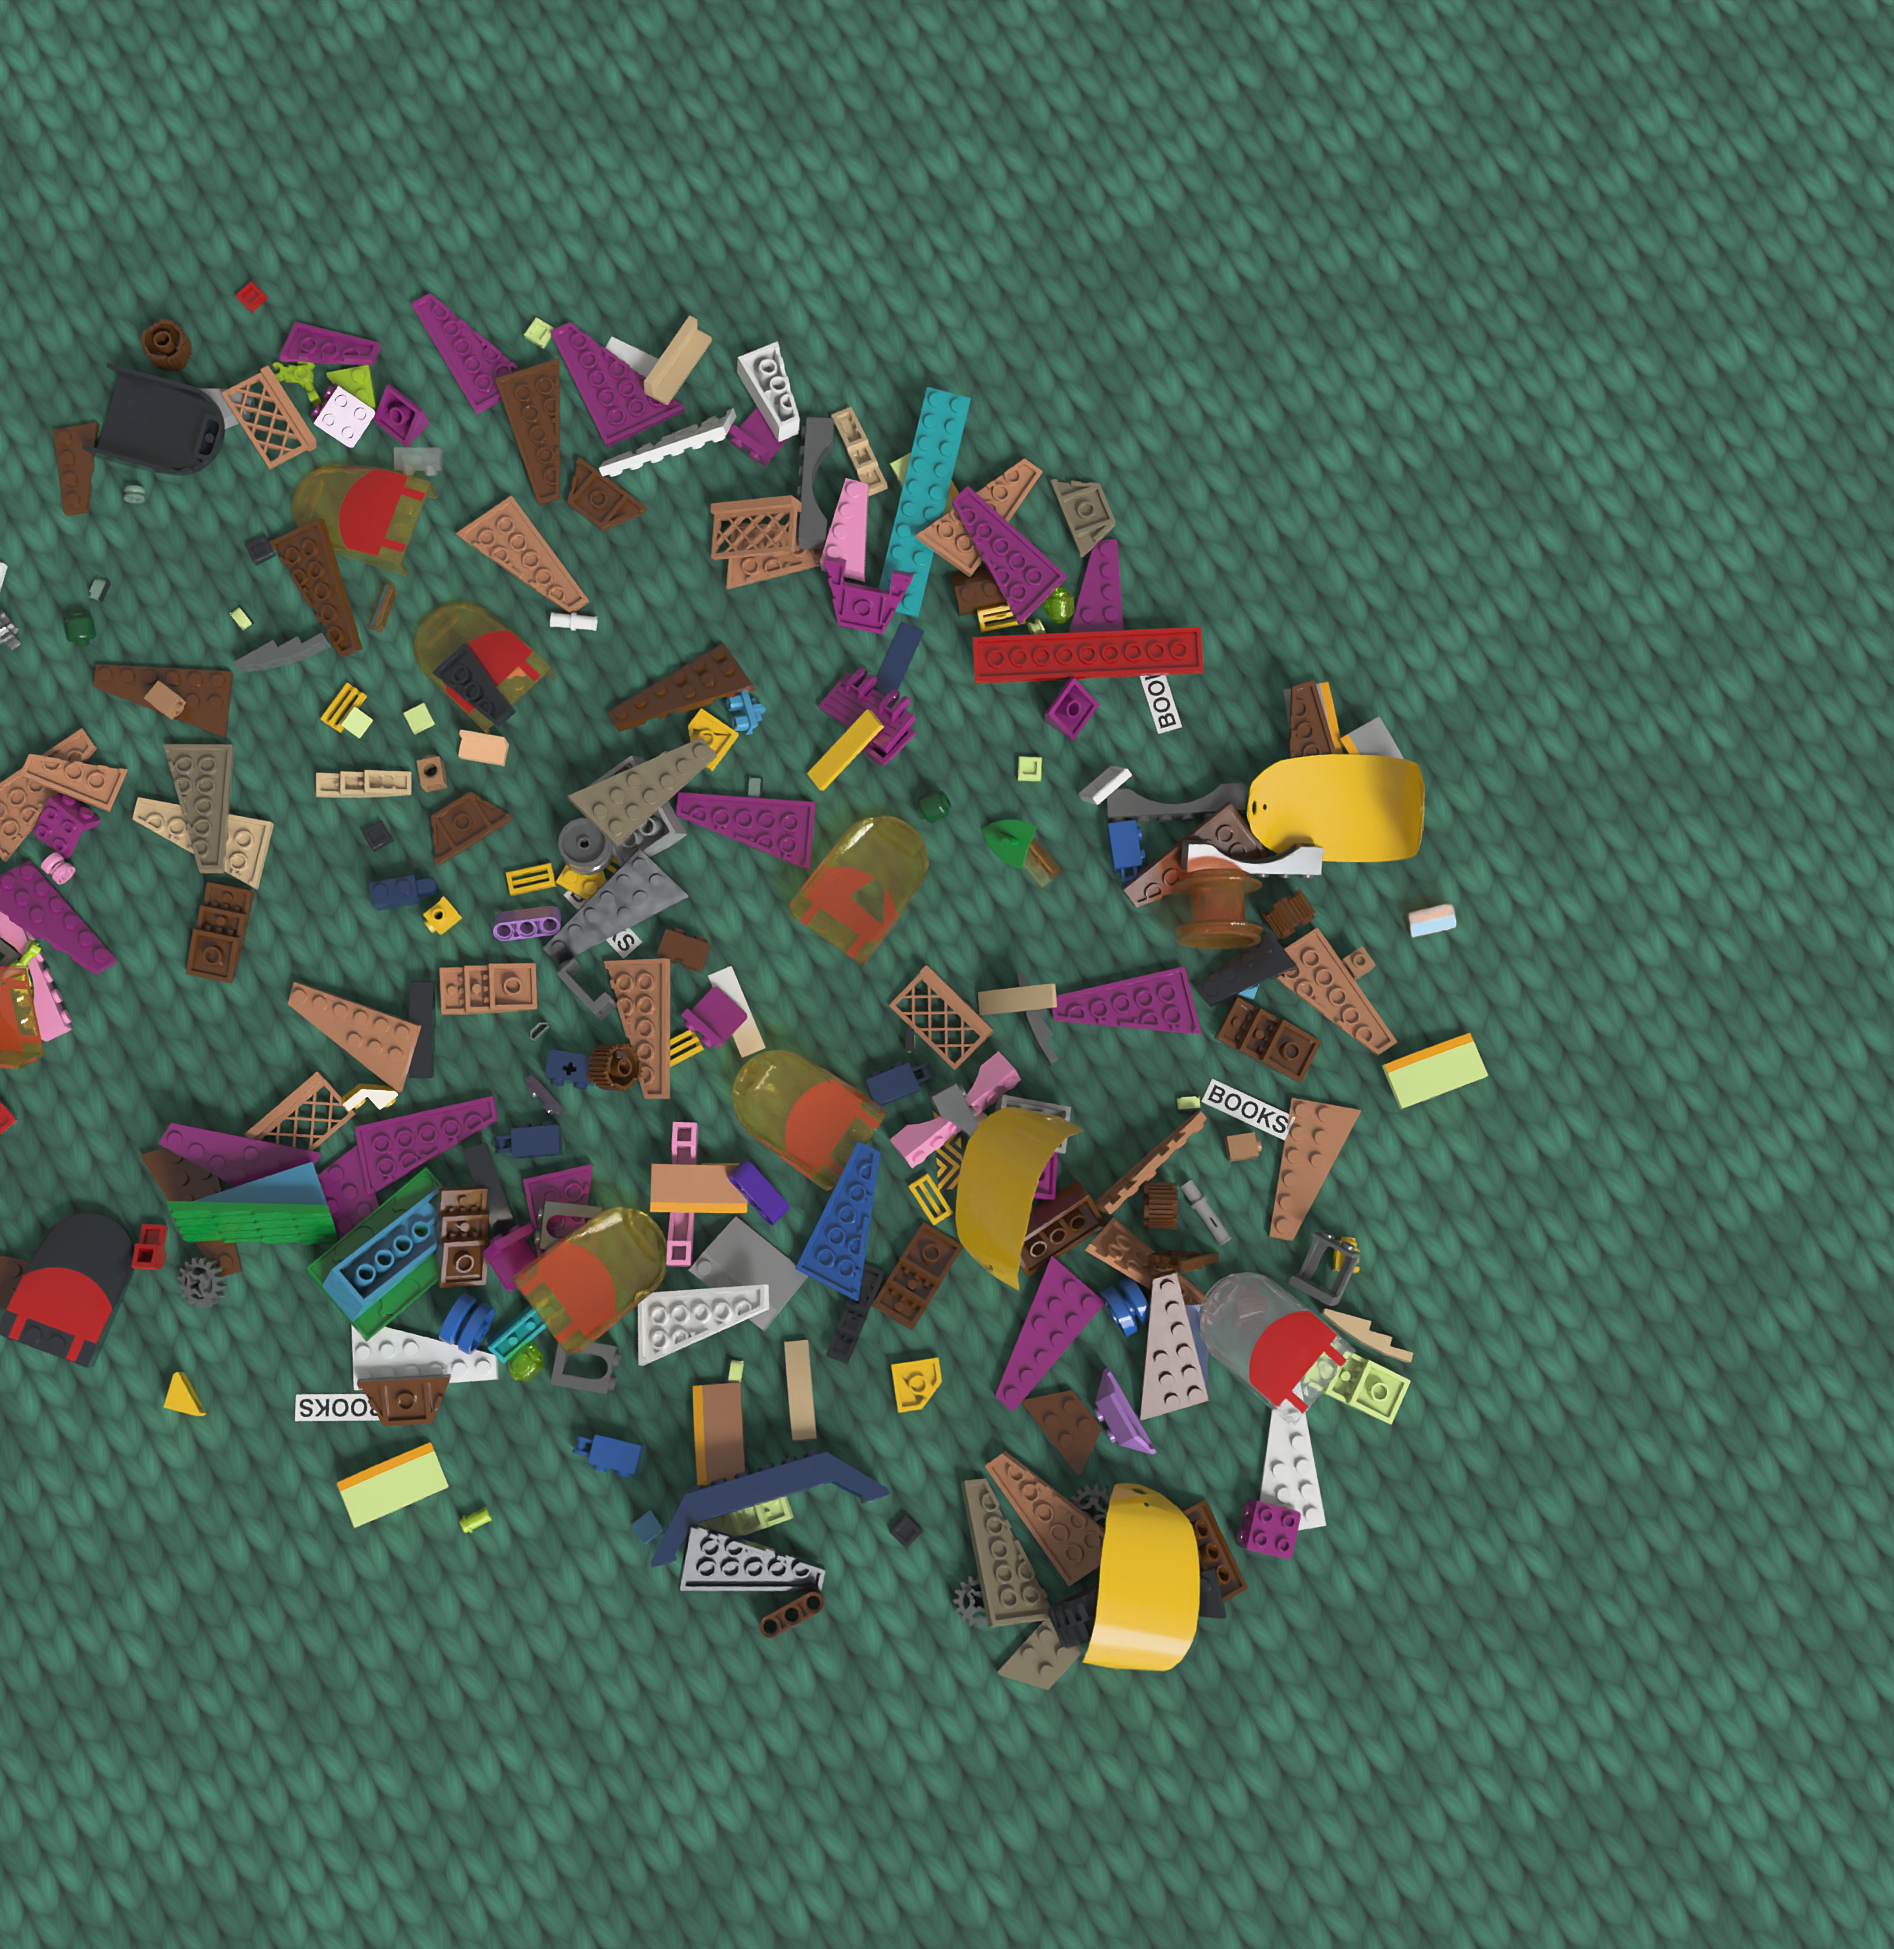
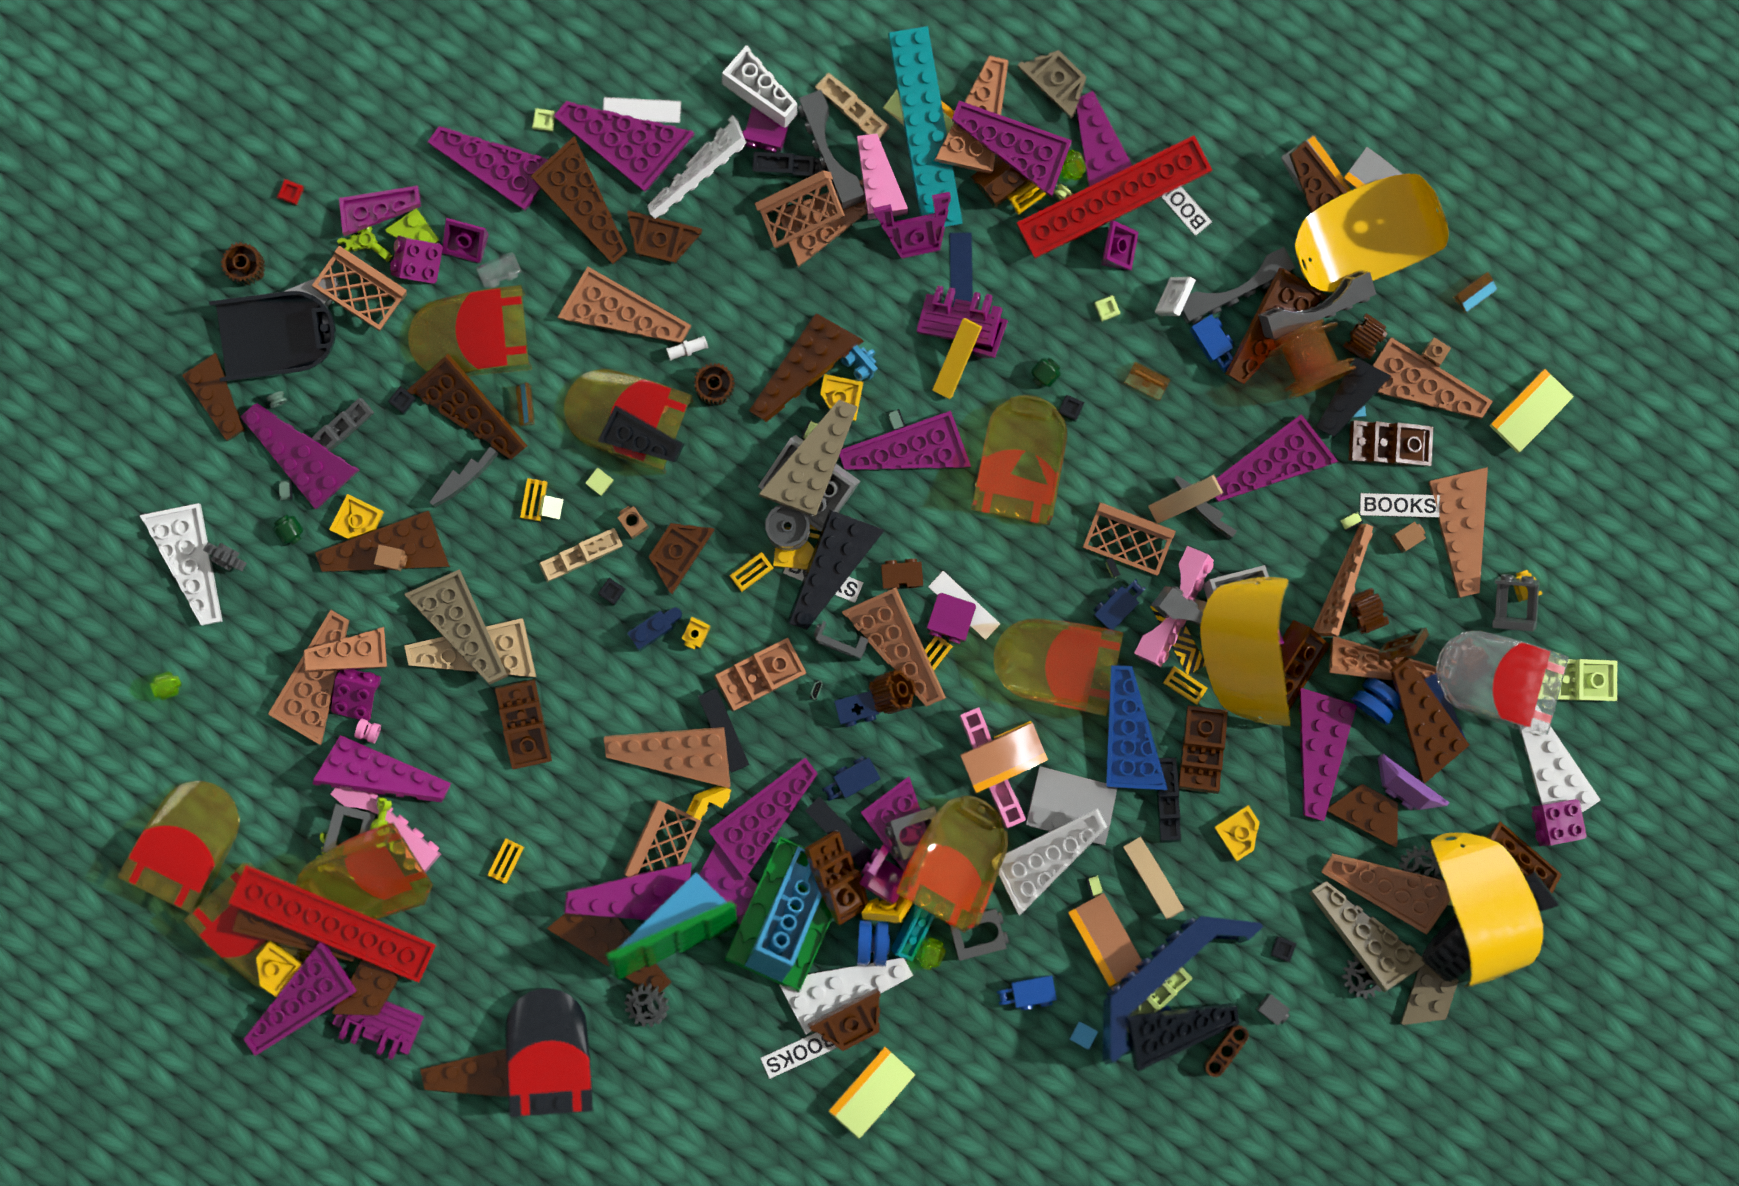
camera: 30 degrees left, 5 degrees up
(127, 1059) = (498, 876): none -> yellow tile
(130, 565) = (305, 461): none -> magenta wing
(151, 1246) = (592, 996): red brick -> none
(154, 647) = (355, 518): none -> yellow plate
(177, 553) = (343, 425): none -> dark grey slope
(183, 1397) = (674, 1100): yellow slope -> none
(241, 617) = (414, 462): yellowish green piece -> none
(475, 1520) = (948, 1090): lime pin -> none
(483, 747) = (663, 483): light nougat panel -> none
(497, 1296) = (884, 911): none -> yellow plate
(519, 930) = (759, 611): medium lavender beam -> none
(550, 1104) = (838, 736): clear purple plate -> none
(586, 680) = (710, 374): none -> reddish brown brick
(676, 362) = (671, 97): tan panel -> none
(758, 1192) = (1051, 739): dark purple beam -> none
(760, 478) = (786, 164): none -> black slope
(864, 1593) = (1273, 1009): none -> dark grey brick
(944, 855) = (1071, 407): none -> black tile
(1010, 840) = (1118, 373): green shield -> none
(1206, 1213) = (1404, 601): light grey pin -> none
(1359, 1331) = (1563, 640): tan slope -> none

